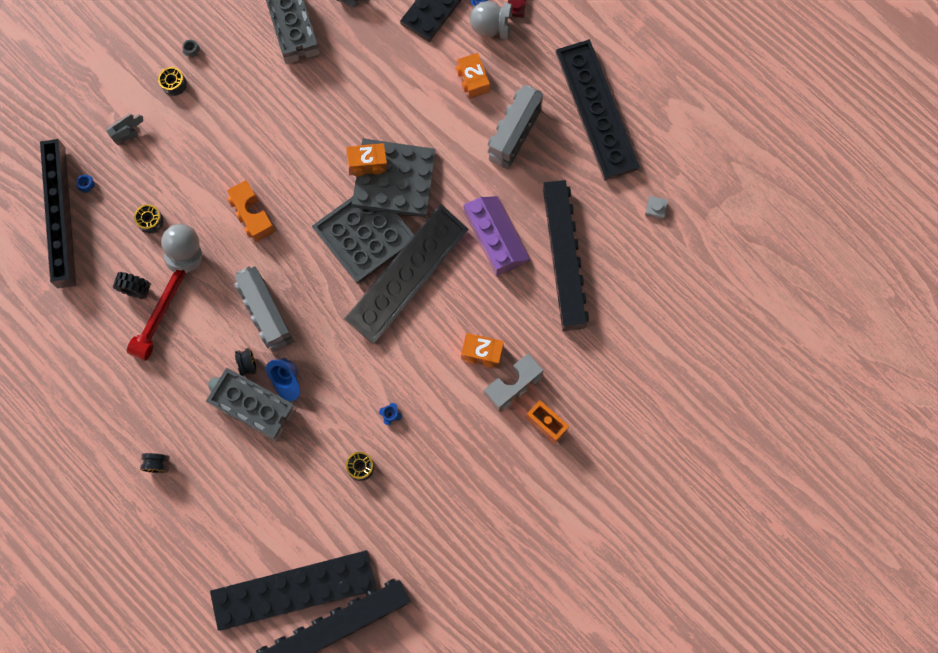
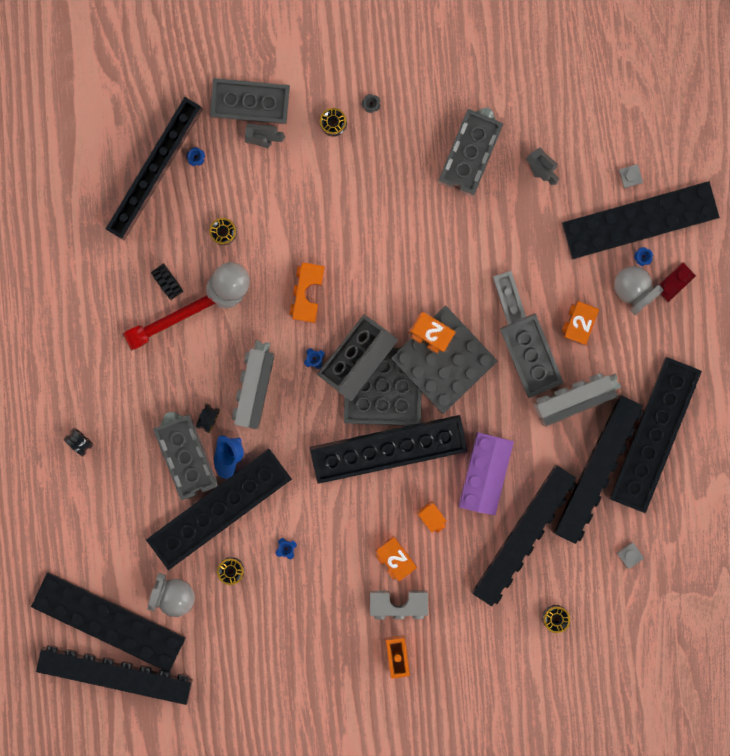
camera: 40 degrees right, 15 degrees up
(96, 114) = (249, 101): none -> dark grey plate
(294, 260) = (310, 362): none -> blue plate
(311, 427) = (218, 509): none -> black plate
(325, 223) = (357, 357): none -> dark grey slope
(328, 522) = (171, 596): none -> light grey tile
(416, 105) = (509, 297): none -> light grey plate
(456, 122) = (531, 355): none -> dark grey plate
(482, 294) = (432, 517): none -> orange brick
(577, 166) = (597, 469): none -> black brick
(648, 291) = (556, 627): none -> wheel

